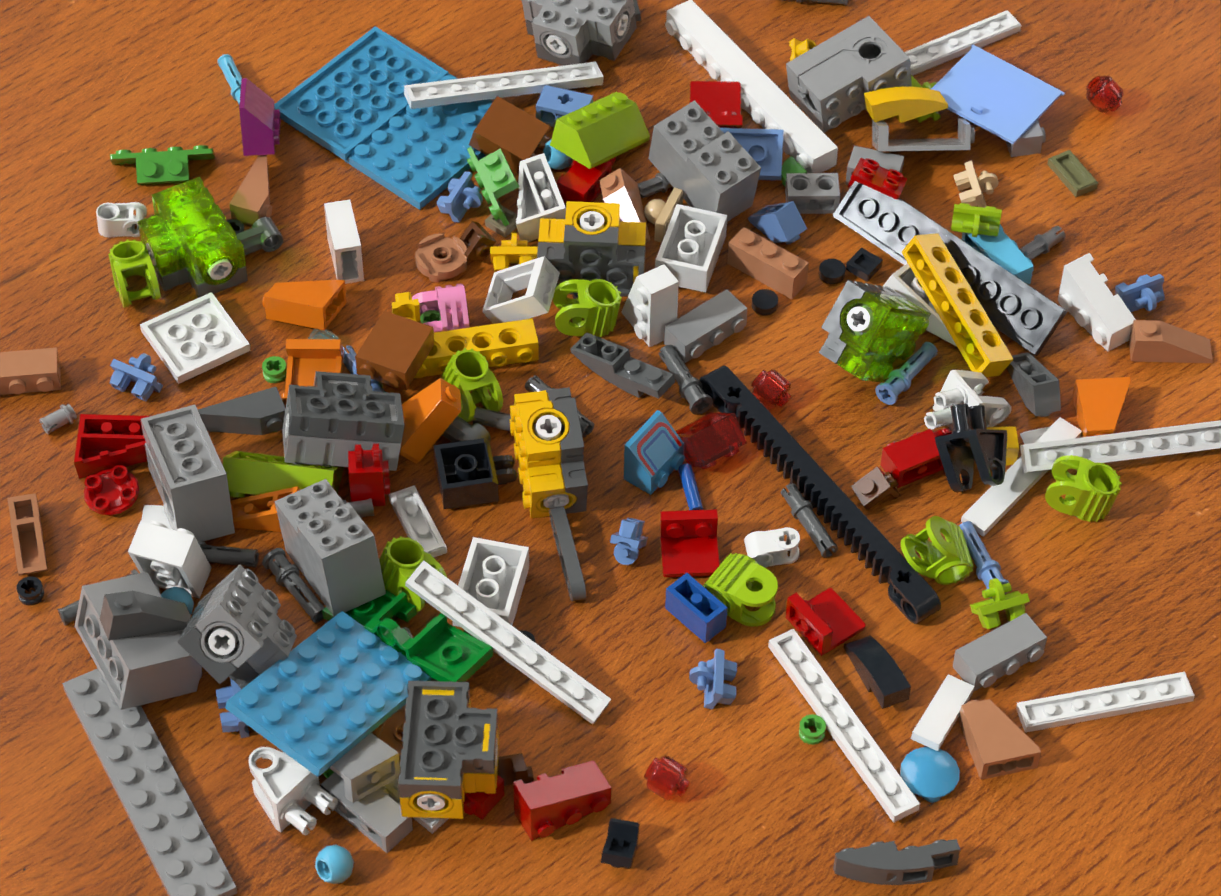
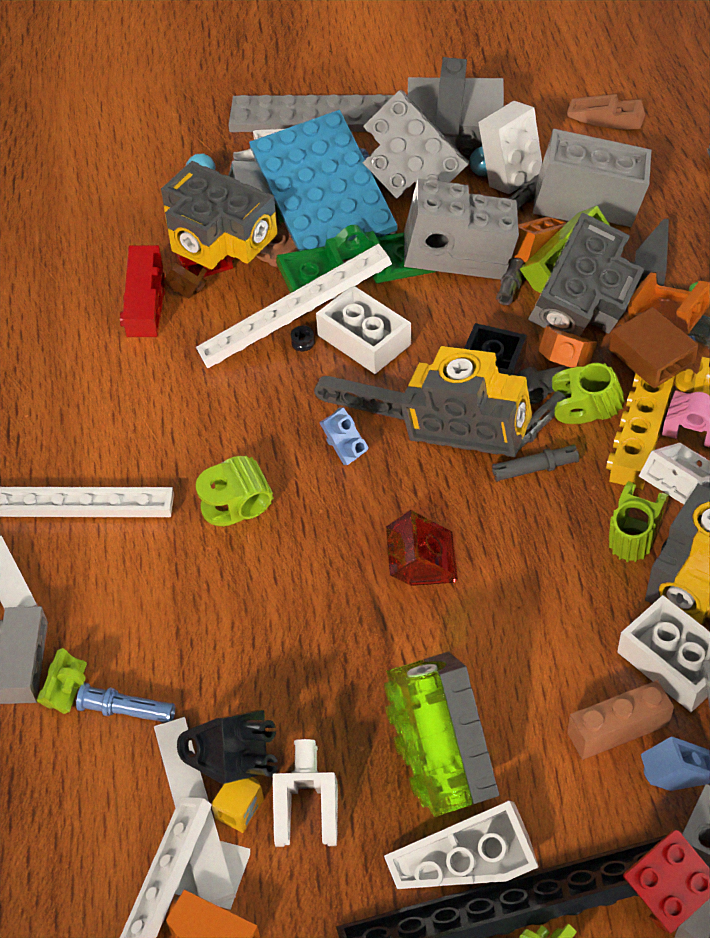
camera: 125 degrees right, 0 degrees up
(27, 583) = (555, 104): black bush -> none
(108, 442) = (670, 170): red wedge -> none
(368, 475) = (525, 287): red hinge -> none
(399, 562) = (413, 279): lime piece -> none
(417, 520) = (461, 323): white tile -> none
(619, 368) = (552, 528): dark grey slope -> none
(620, 843) = (79, 315): black bracket -> none
(652, 304) = (603, 567): white wedge -> none
(652, 454) = (423, 488): dark azure slope -> none
(667, 778) = (107, 364): clear red head -> none
(689, 387) = (493, 571): dark grey pin -> none
(689, 542) = (311, 483): red bracket -> none
(690, 487) = (369, 516): blue piece -> none
(696, 607) = (240, 441): blue brick -> none
(706, 325) = (563, 621): light grey brick -> none
(710, 678) = (176, 442): medium blue hips -> none
(764, 302) = (572, 697): black tile -> none
(770, 548) = (264, 541): white piece -> none
(771, 389) = (445, 633): clear red head -> none
(803, 511) = (274, 587): dark grey pin -> none
(805, 733) = (72, 476): bright green bush -> none
(823, 620) = (161, 536): red bracket -> none
(832, 271) = (582, 788): black tile -> none
(864, 264) = (570, 822): black plate -> none
(875, 487) = (269, 664): bracket -> none
(878, 671) = (82, 550): black slope -> none
(900, 379) = (385, 760): pin -> none
(906, 586) = (129, 618): black gear -> none
(913, 457) = (281, 702): red hinge -> none
(941, 559) = (151, 655): lime piece -> none
(957, 305) = (348, 853): yellow brick -> none
(1035, 385) = (295, 891): dark grey slope -> none
(1093, 488) = (129, 842): lime piece -> none

